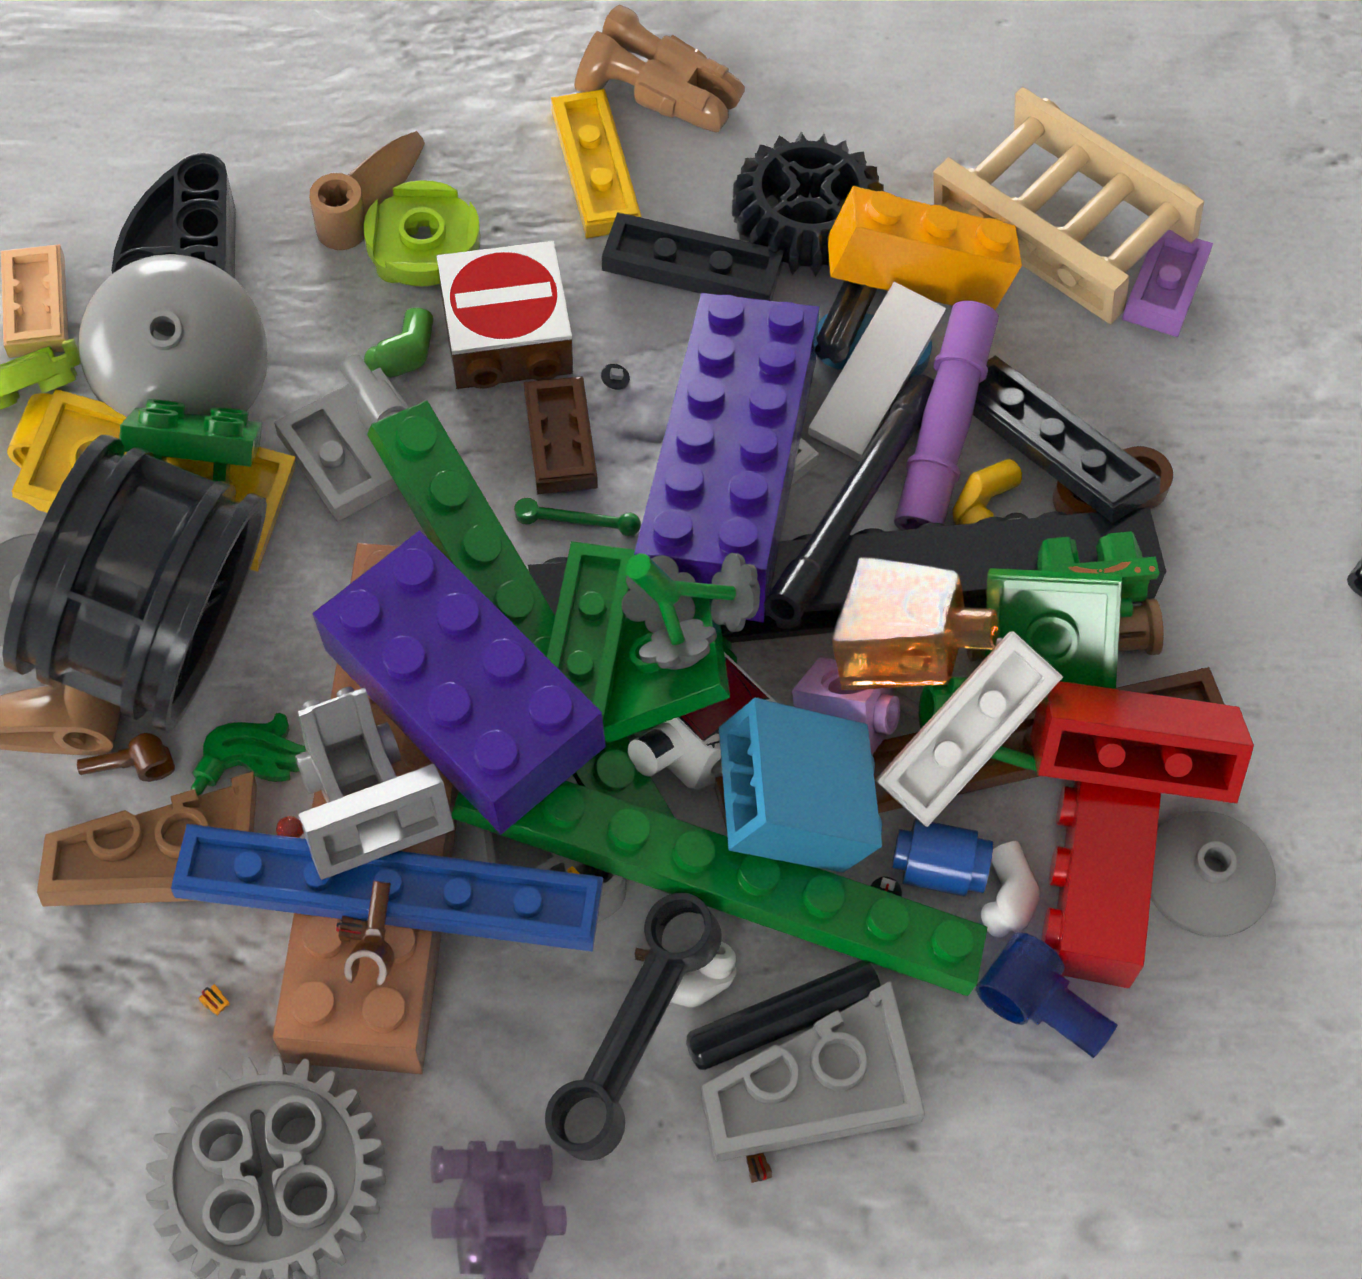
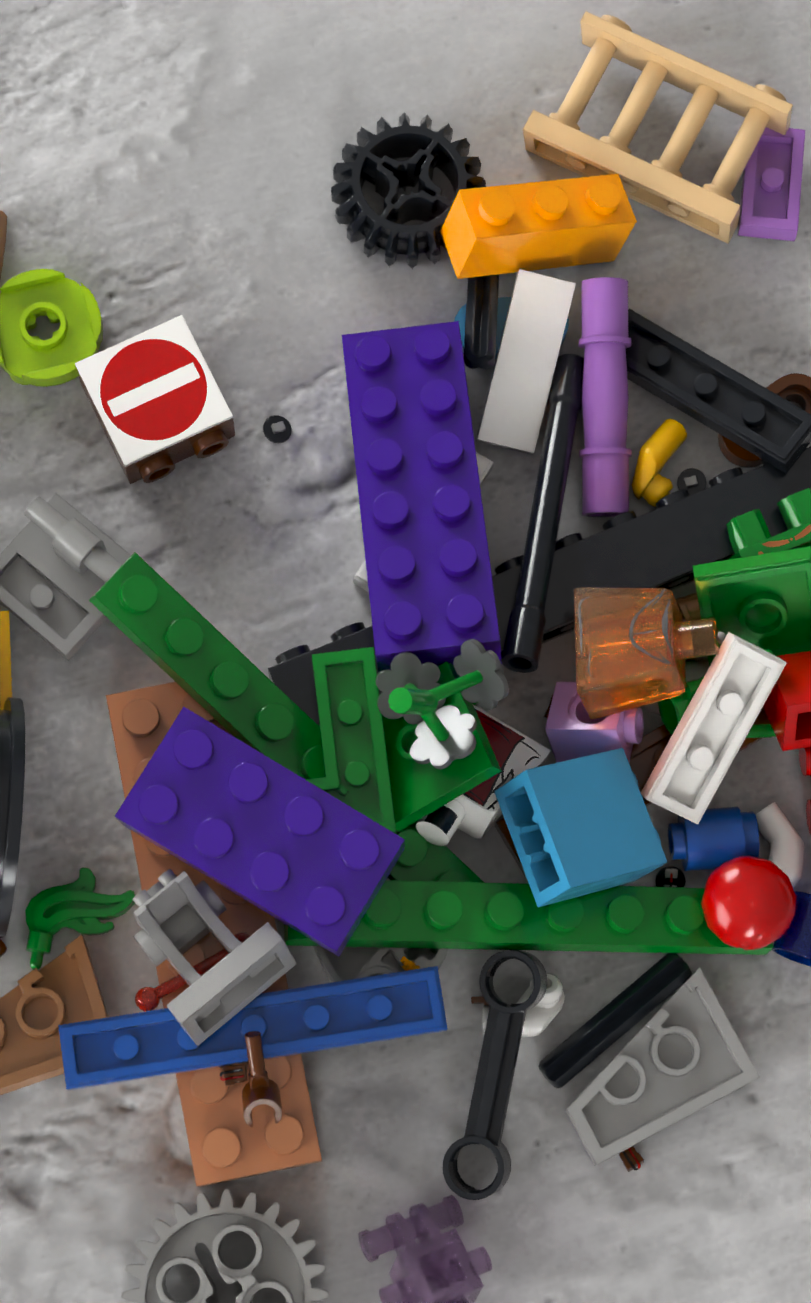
camera: 20 degrees left, 15 degrees up
(213, 999) = (121, 1151): light orange piece -> none
(406, 350) = (71, 462): bright green arm -> none
(528, 512) = (241, 597): green hinge -> none
(560, 435) = (248, 512): reddish brown plate -> none
(594, 160) = (184, 194): yellow tile -> none
(672, 81) = (235, 77): medium nougat piece -> none
(690, 259) = (314, 285): black plate -> none
(961, 921) = (748, 902): none -> red hair

